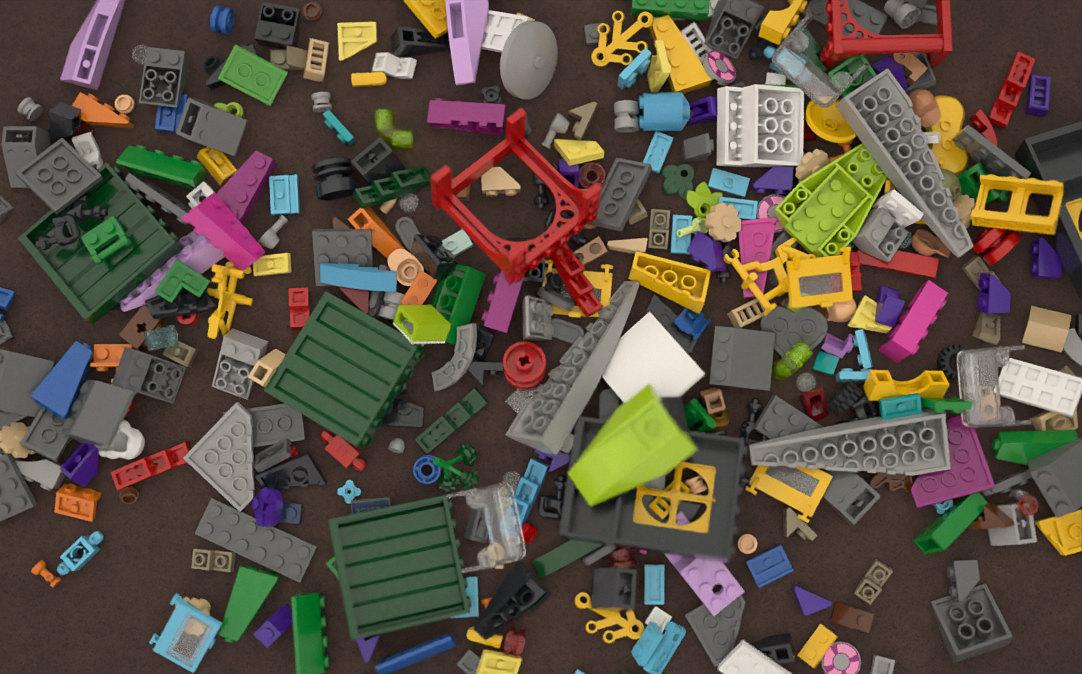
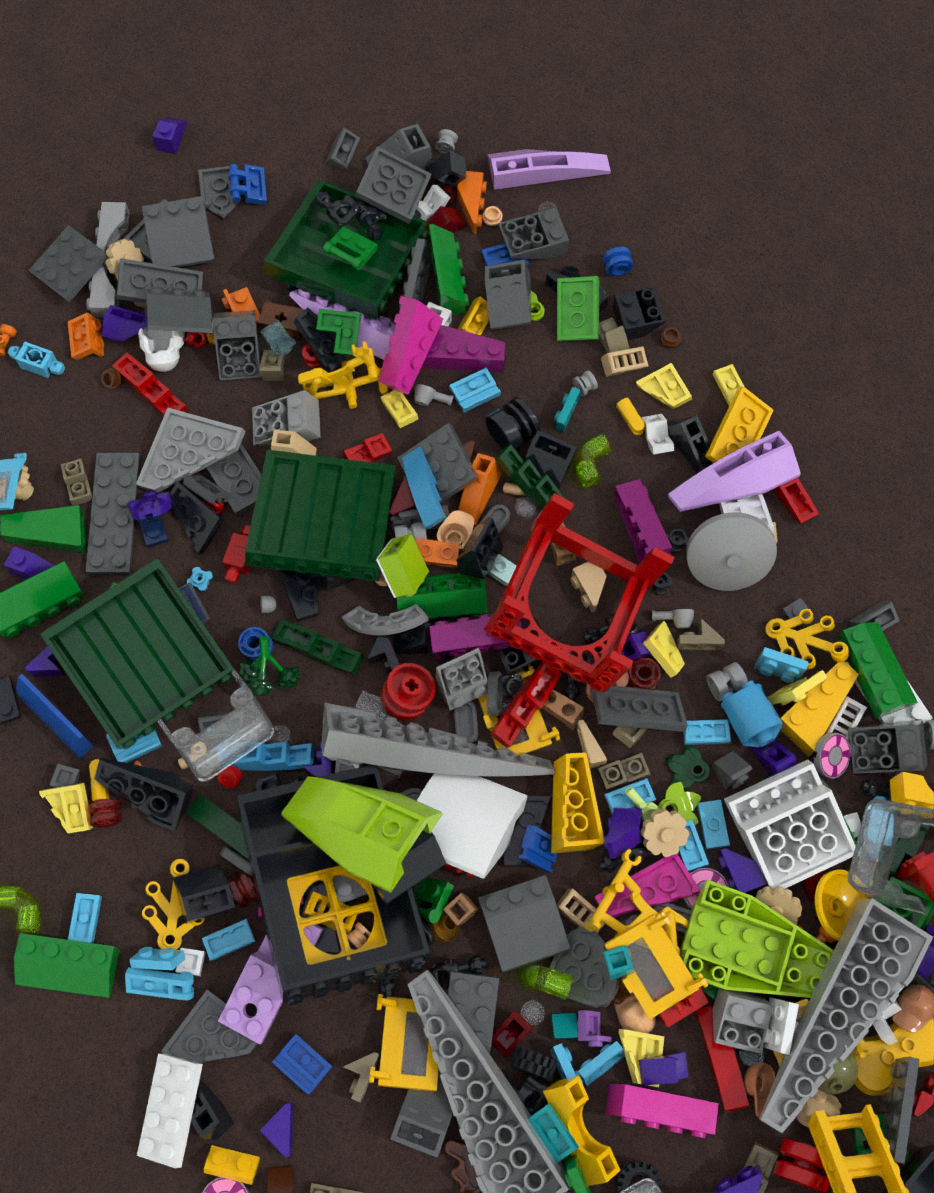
camera: 65 degrees right, 15 degrees down
(64, 381) = (199, 272): blue slope -> none
(111, 146) = (448, 219): none -> dark red slope
(747, 543) = (317, 1027): light nougat plate -> none
(808, 303) = (618, 962): none -> teal slope
(970, 186) = (854, 1102): green plate -> none

